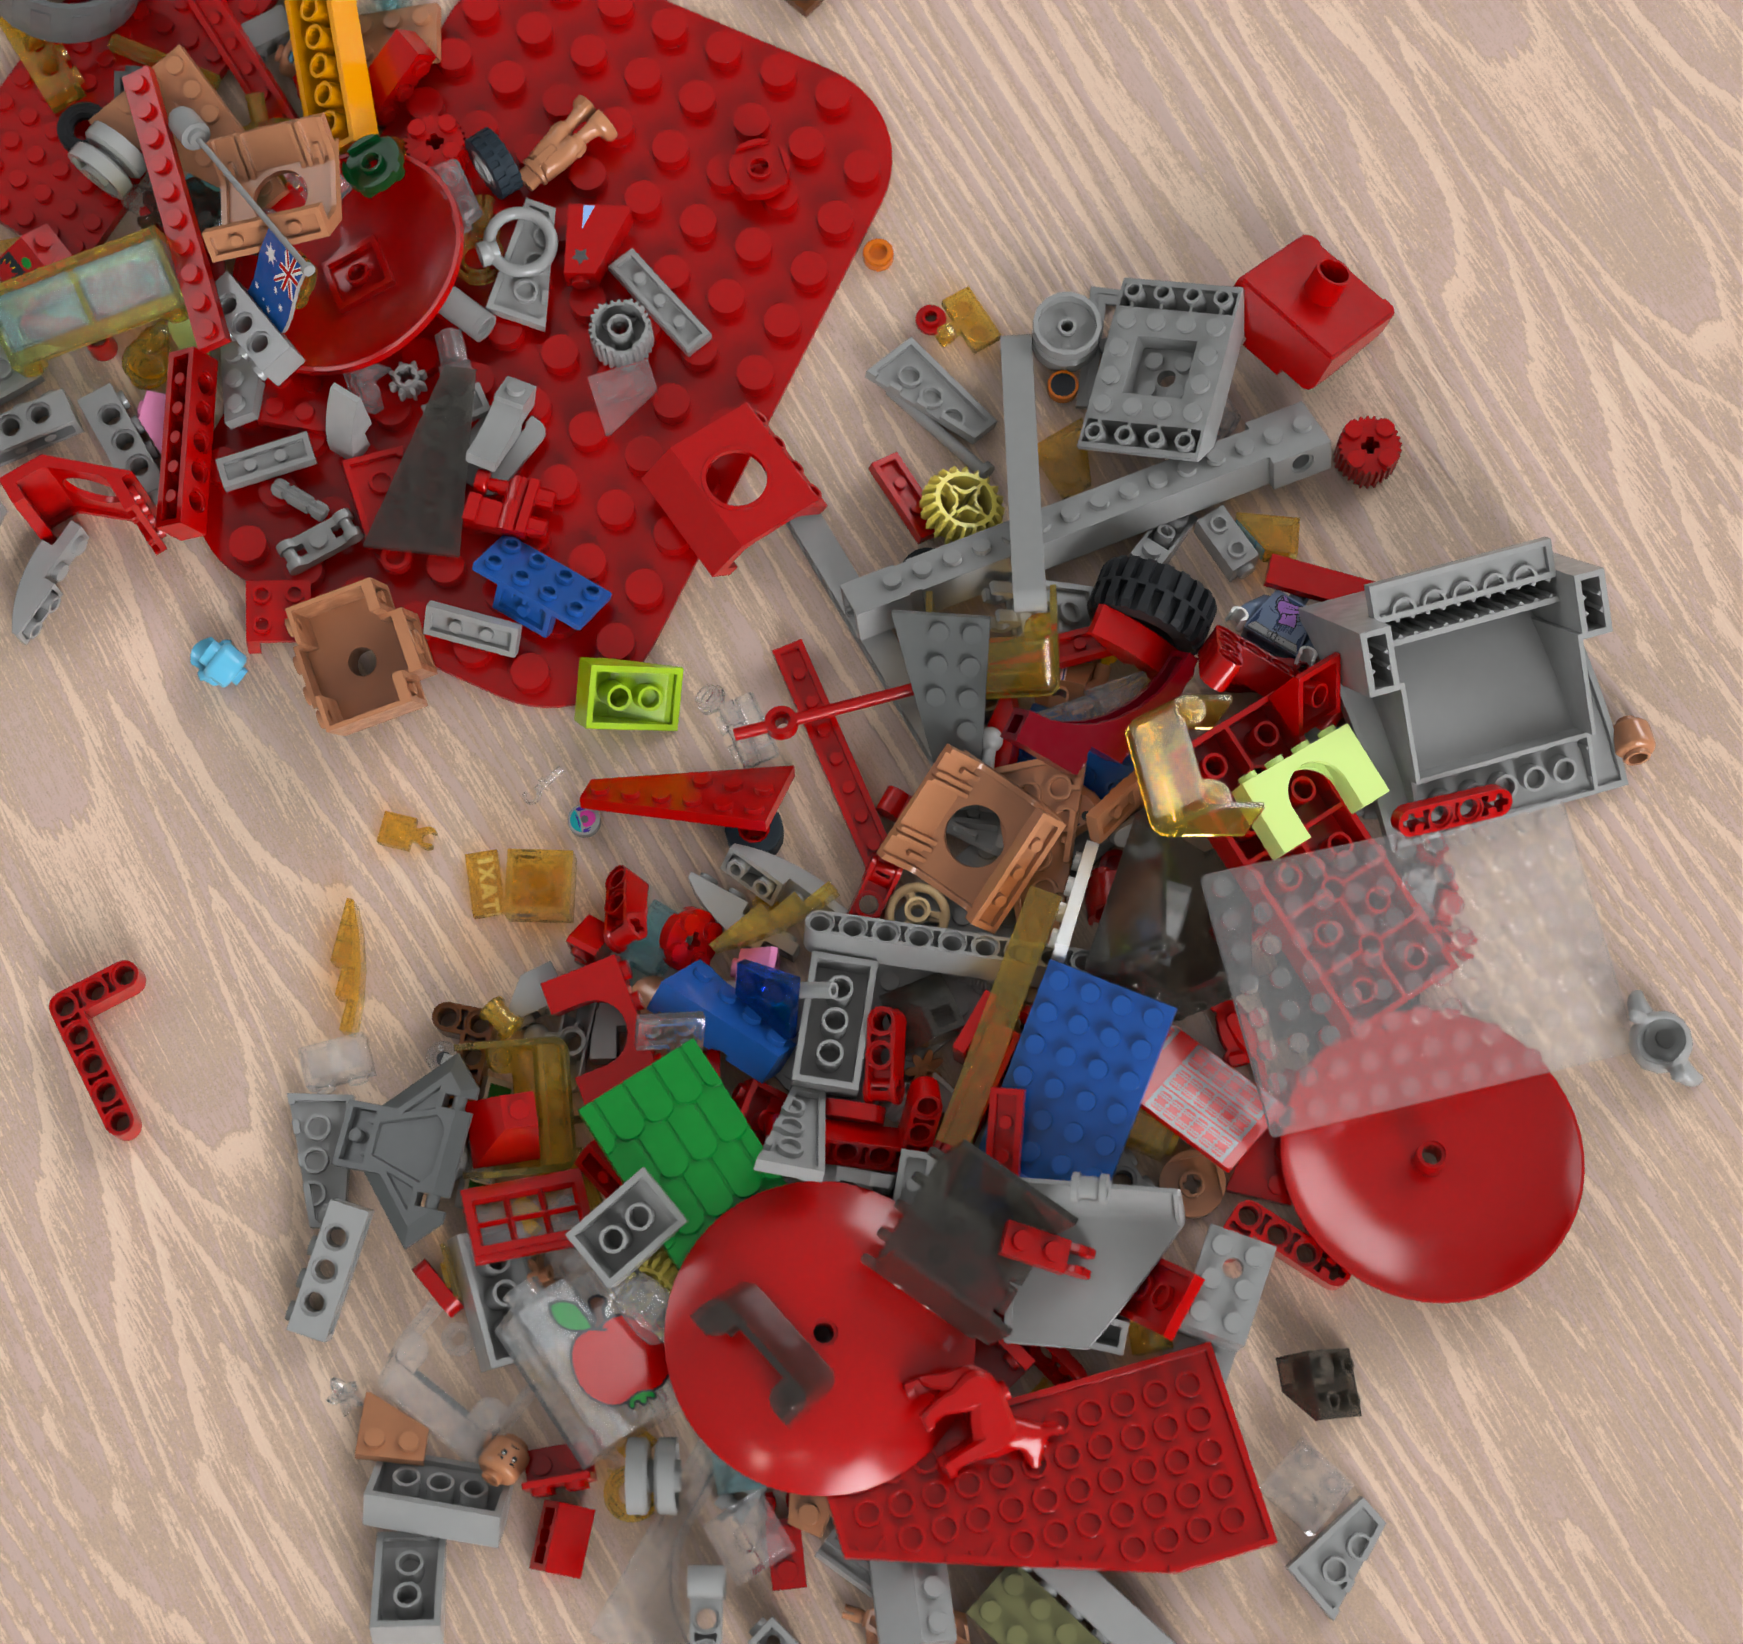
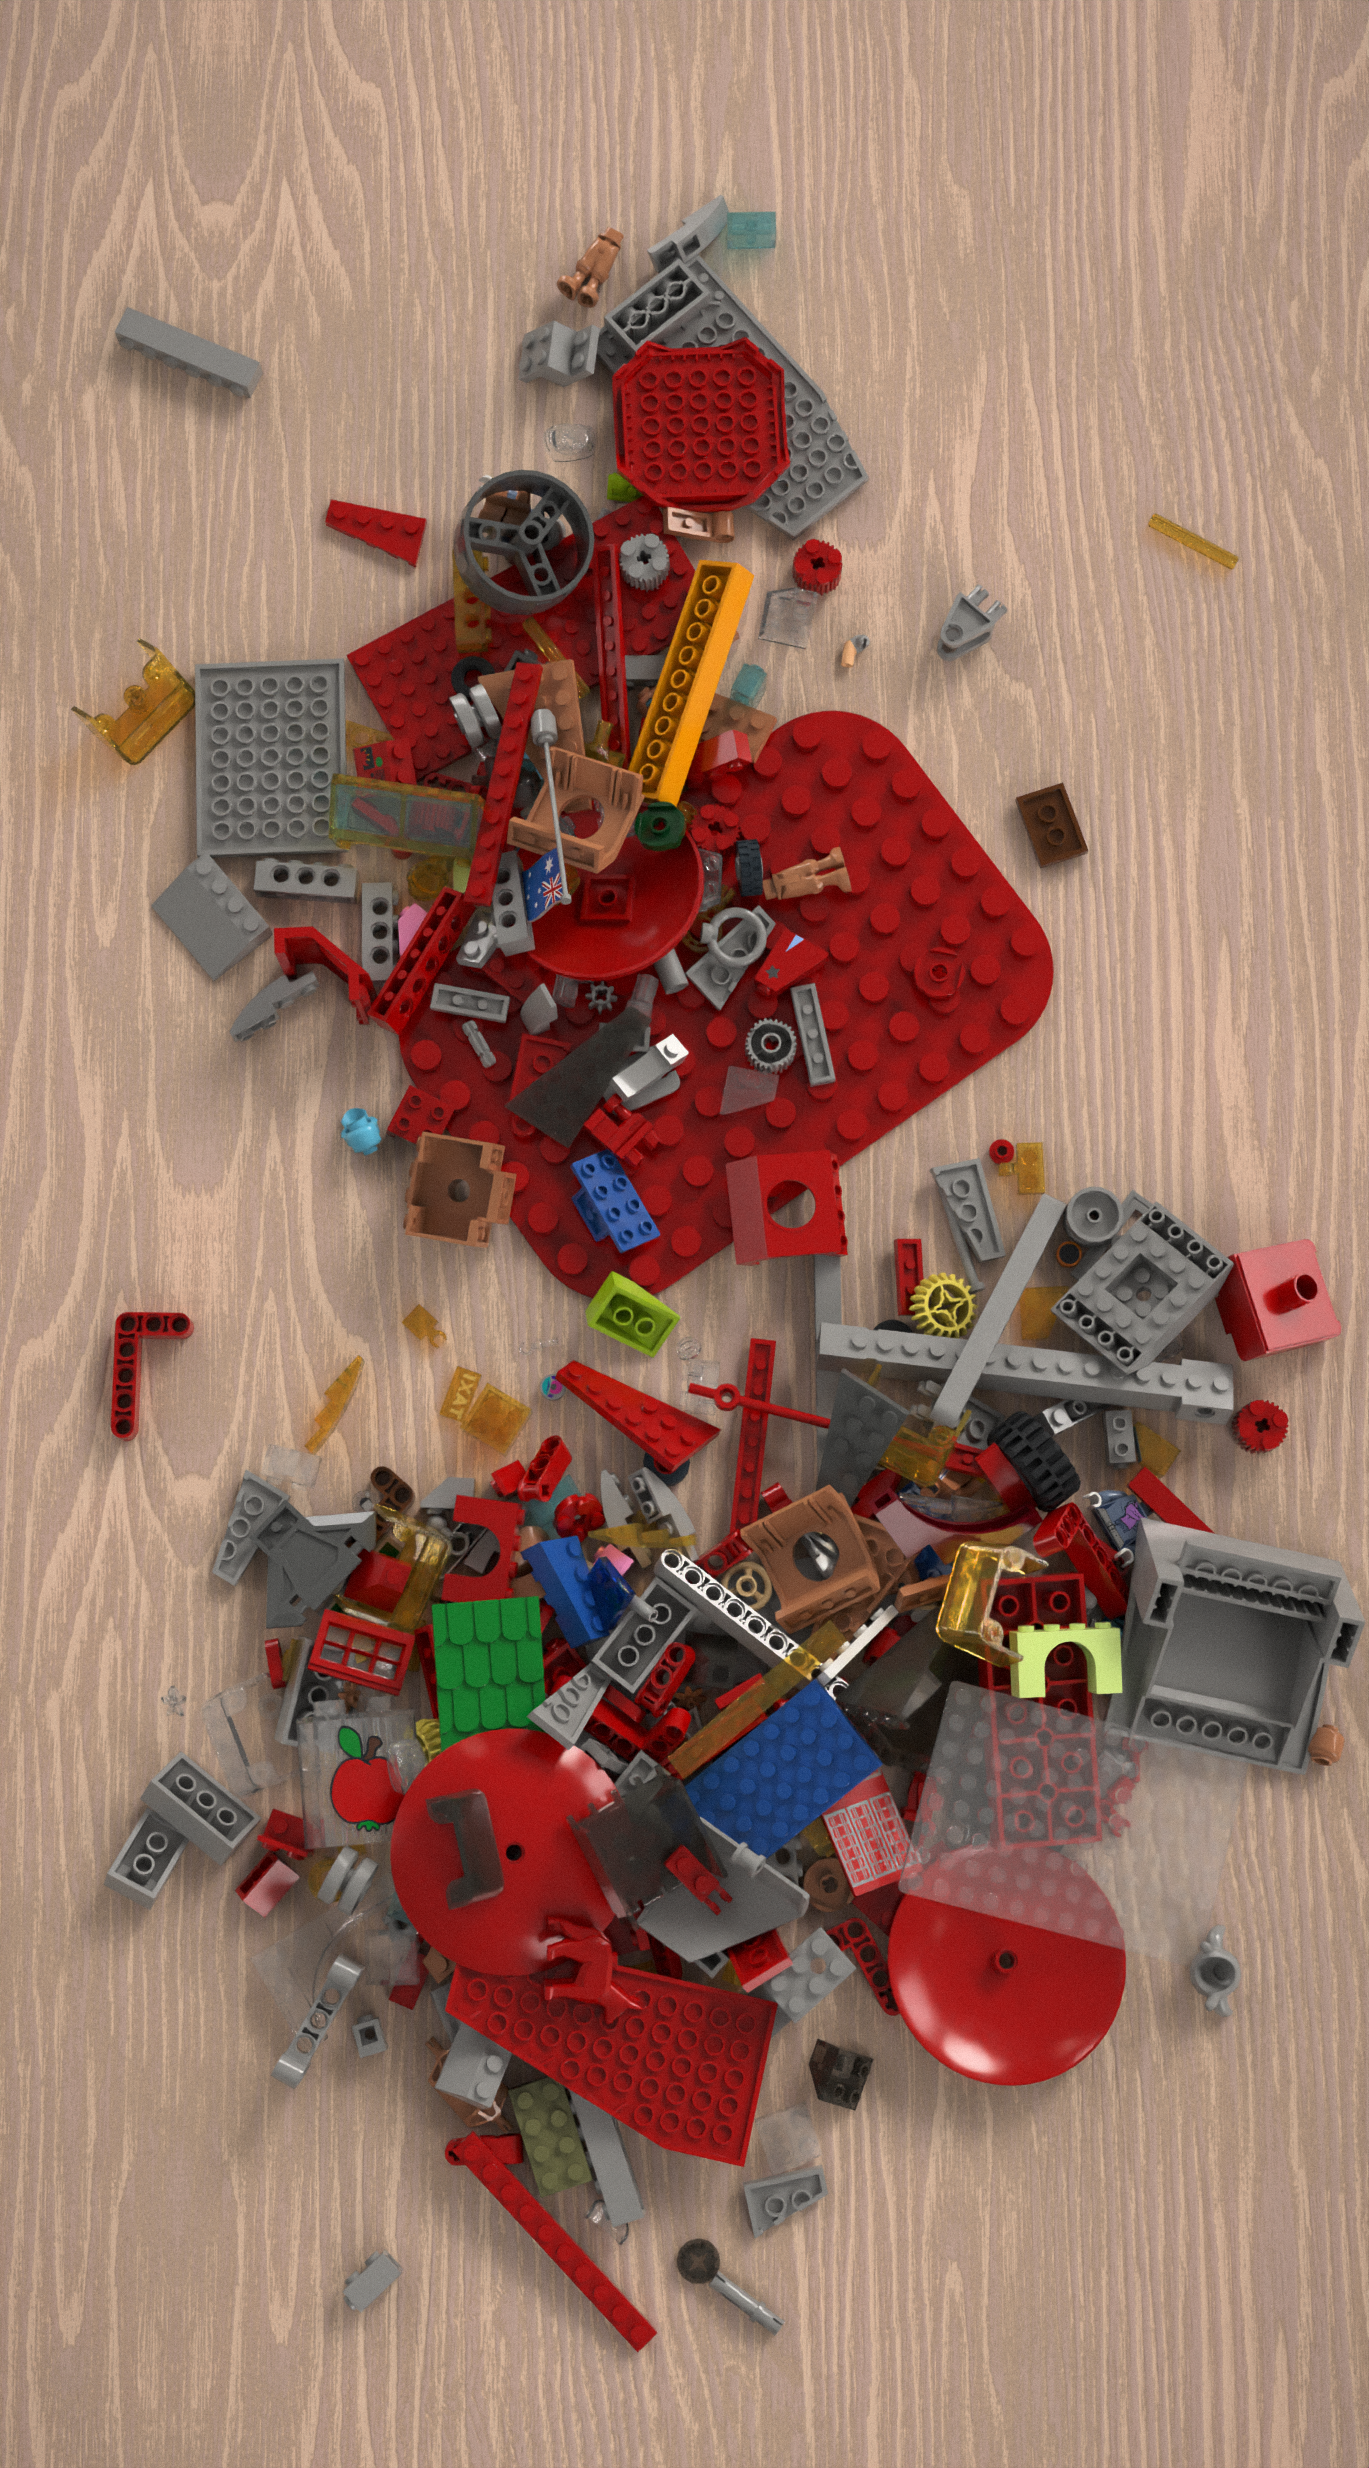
camera: 25 degrees right, 5 degrees up
(301, 1315) = (243, 1587): light grey brick -> none
(320, 542) = (476, 1083): light grey plate -> none
(390, 1434) = (190, 1746): nougat wing -> none
(472, 629) = (548, 1208): light grey plate -> none
(501, 1017) = (418, 1501): clear yellow bush -> none
(504, 1460) = (256, 1809): nougat head -> none
(626, 1228) = (420, 1705): light grey slope -> none
(669, 1030) = (526, 1580): clear plate -> none
(878, 254) = (991, 1080): orange tile -> none
(991, 743) = (865, 1495): light grey bar -> none
(1006, 1126) = (717, 1781): red plate -> none
(1310, 696) = (1106, 1592): red slope -> none
(1451, 810) = (1159, 1731): red beam -> none

